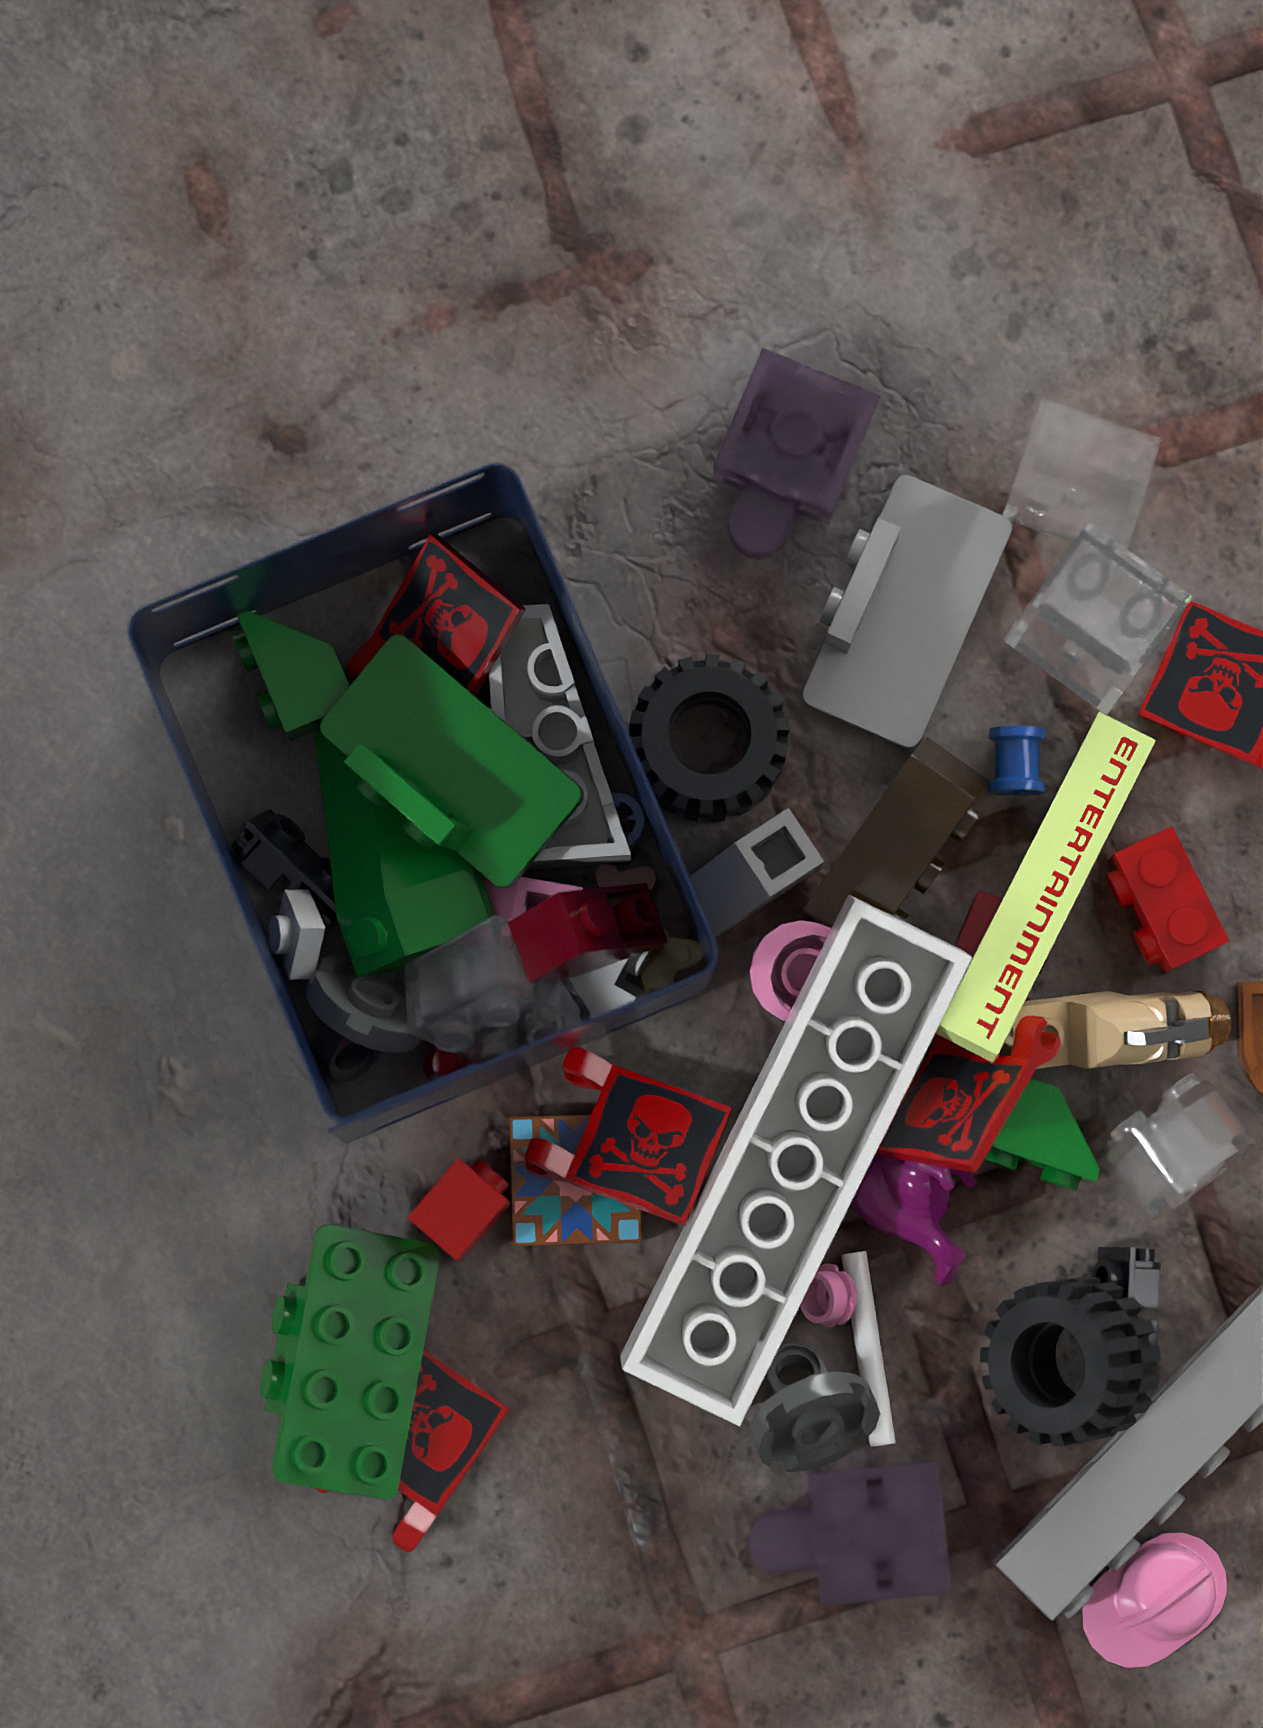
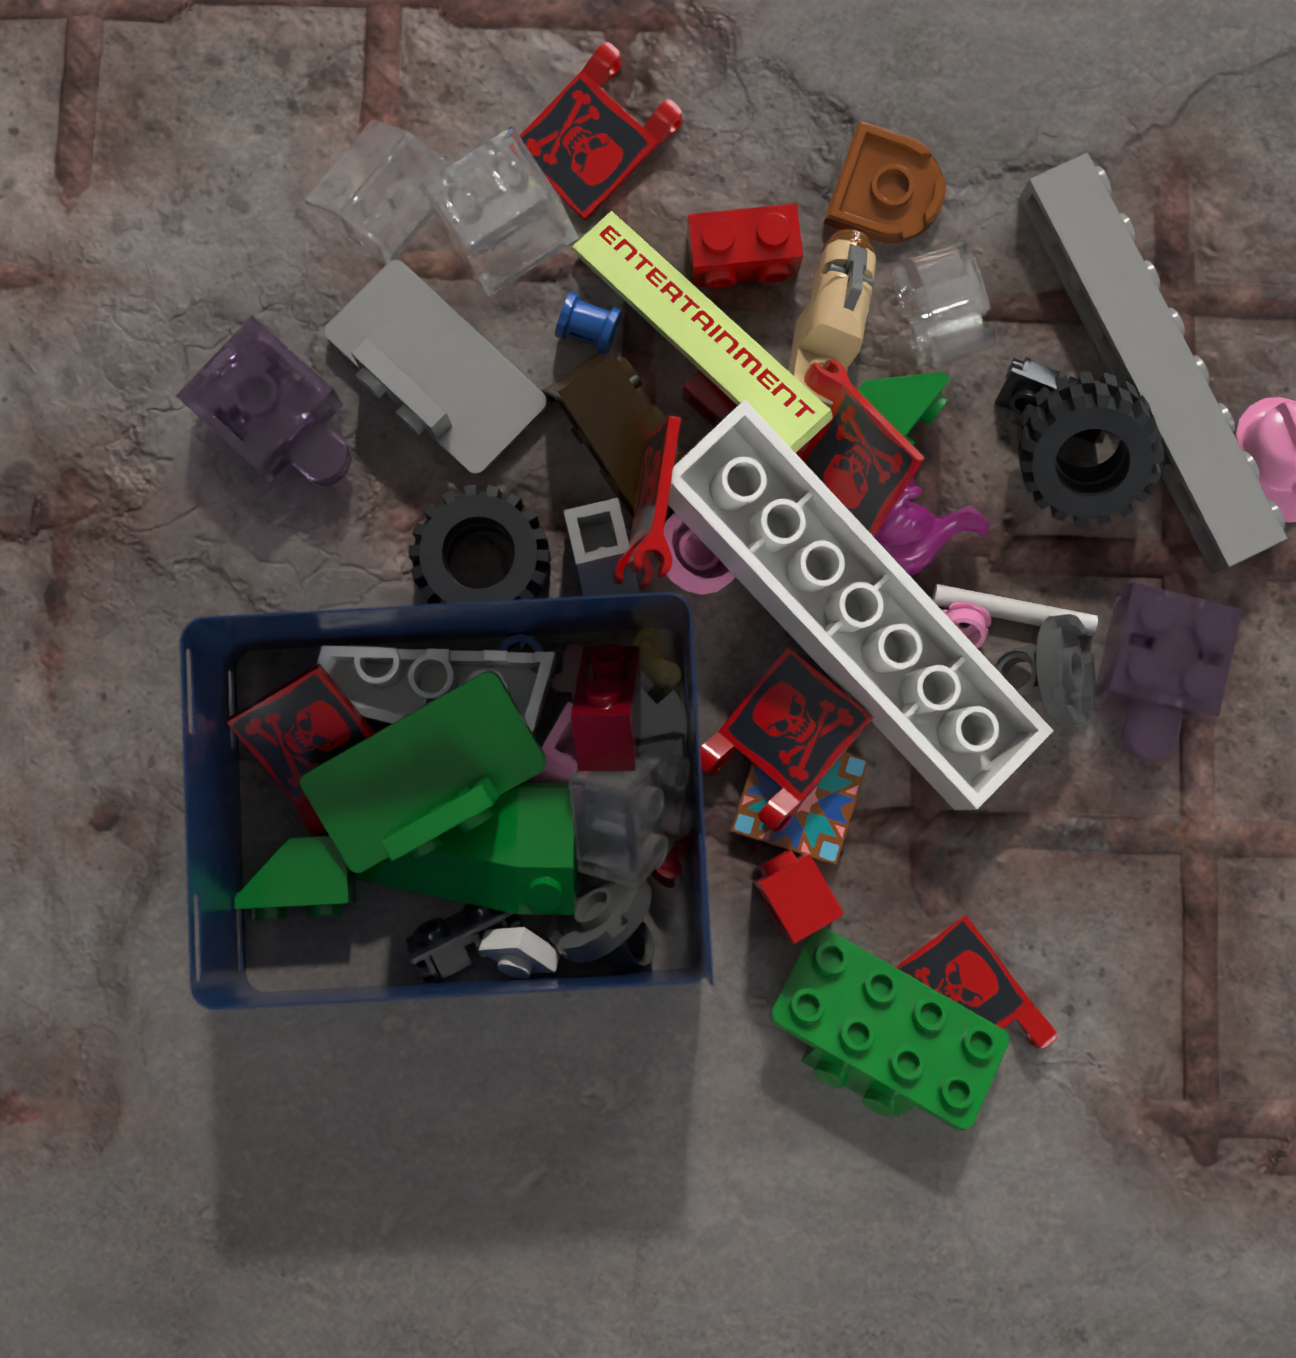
camera: 75 degrees left, 0 degrees up
(777, 906) = (651, 506): none -> red flag

